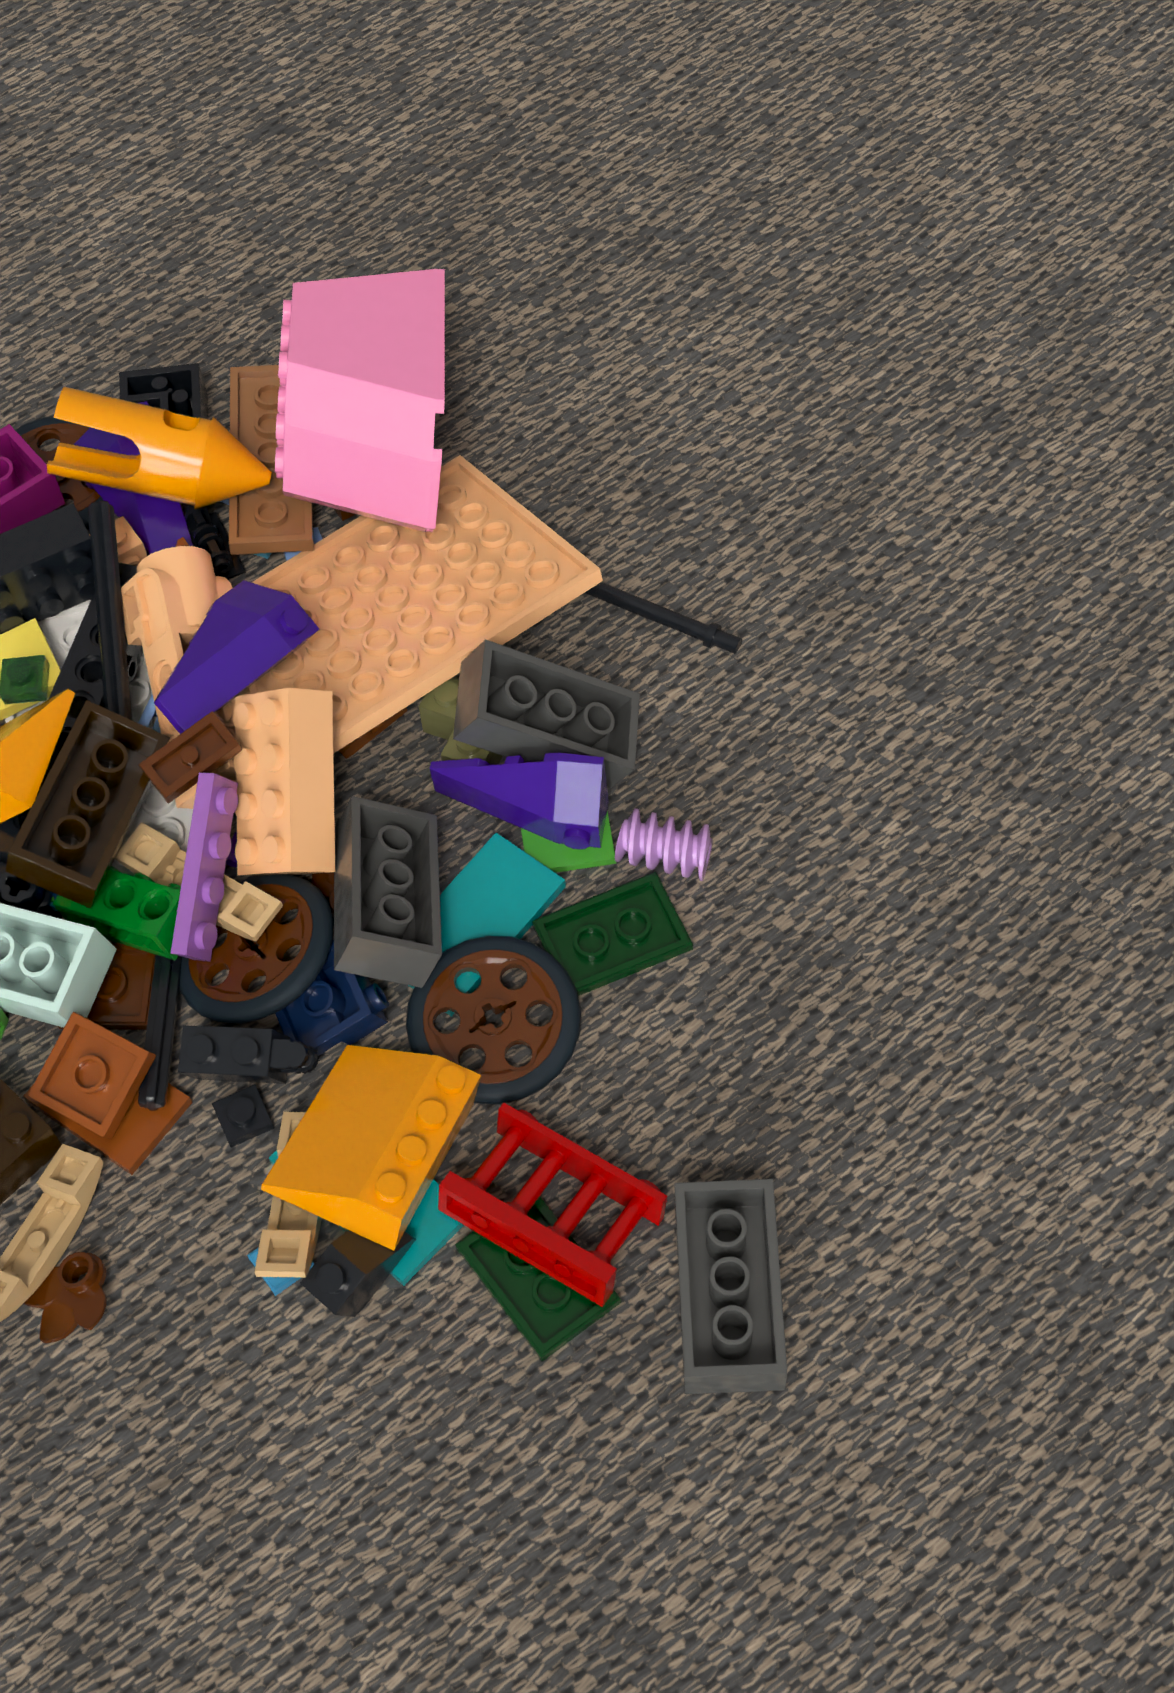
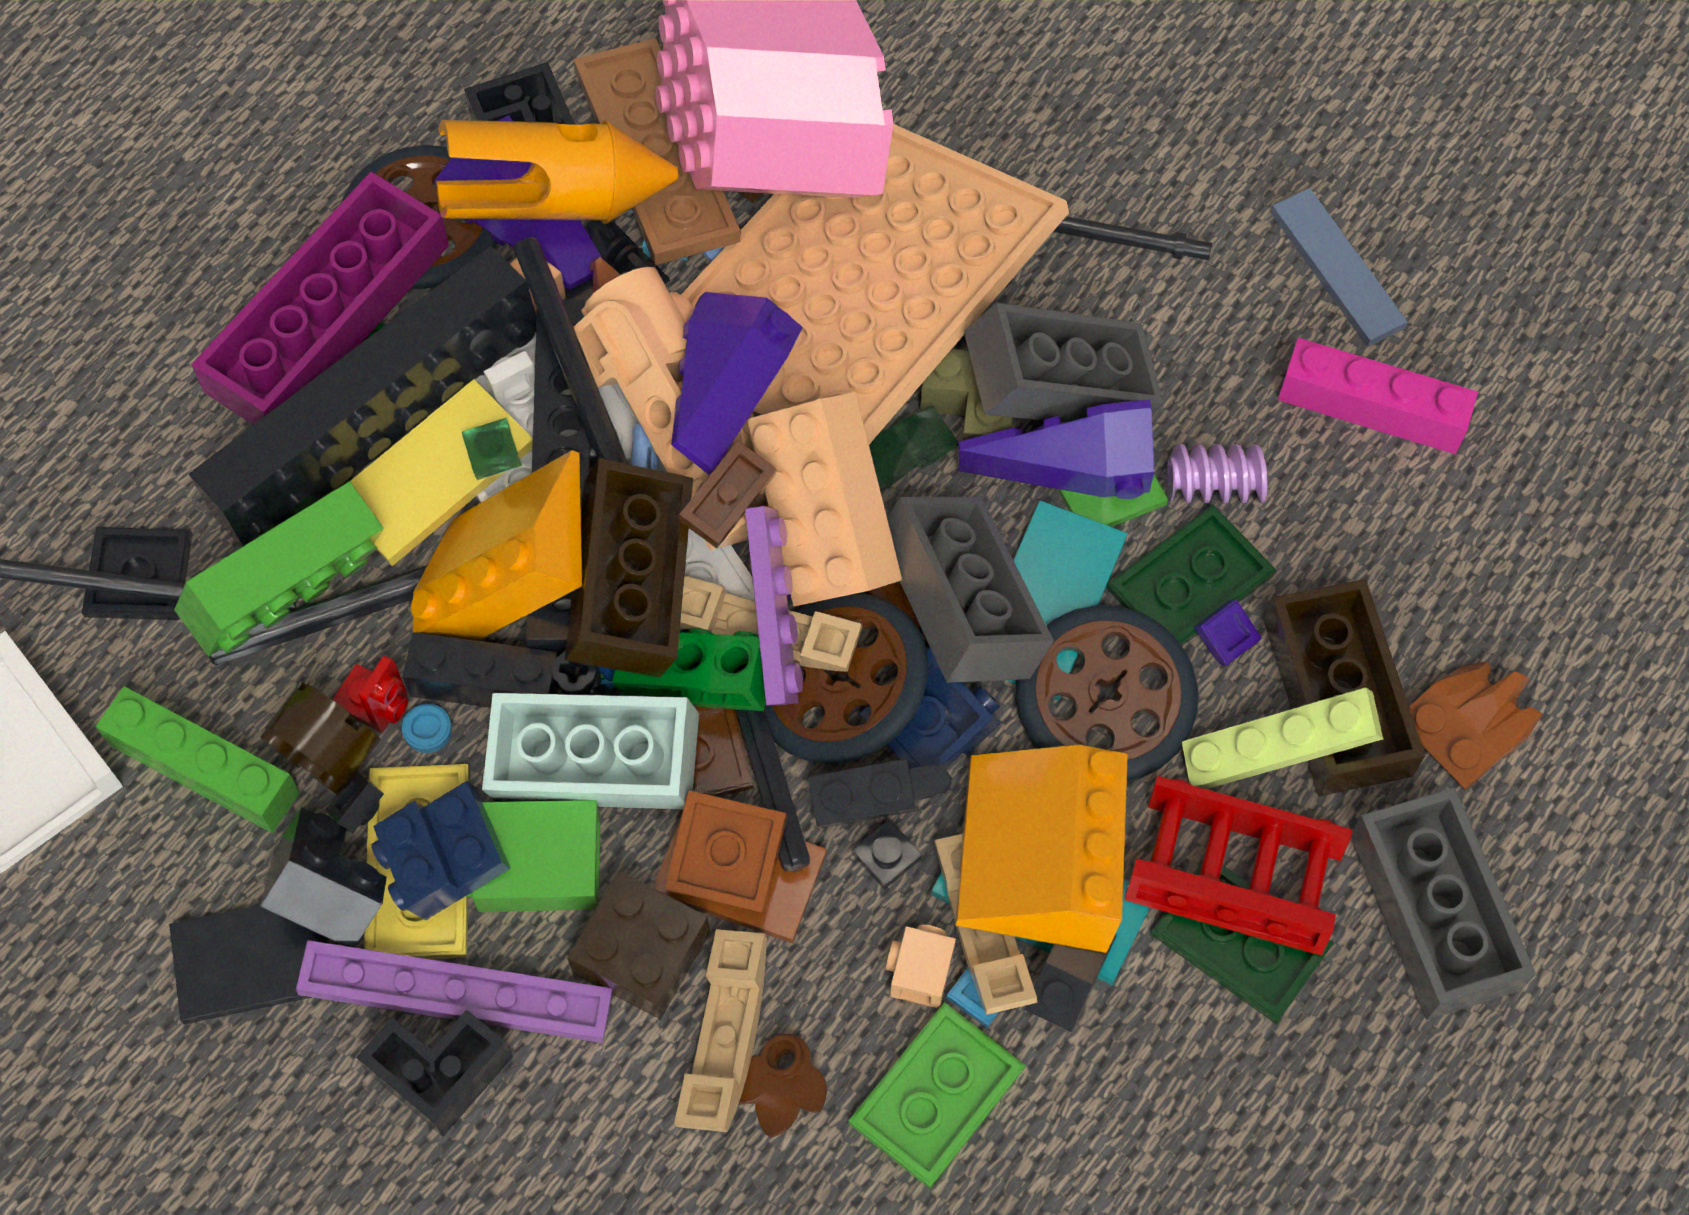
camera: 20 degrees left, 5 degrees up
(62, 623) = (510, 378): none -> white plate
(205, 1344) = (936, 1095): none -> bright green tile
(231, 1222) = (921, 965): none -> light nougat brick
(393, 758) = (910, 444): none -> clear green slope
(626, 990) = (1228, 632): none -> dark purple tile
(629, 1096) = (1282, 739): none -> yellowish green plate
(709, 1064) = (1334, 645): none -> dark brown brick
(826, 1125) = (1472, 722): none -> dark orange plate
(842, 806) = (1378, 396): none -> dark pink brick
(853, 685) = (1338, 267): none -> sand blue tile

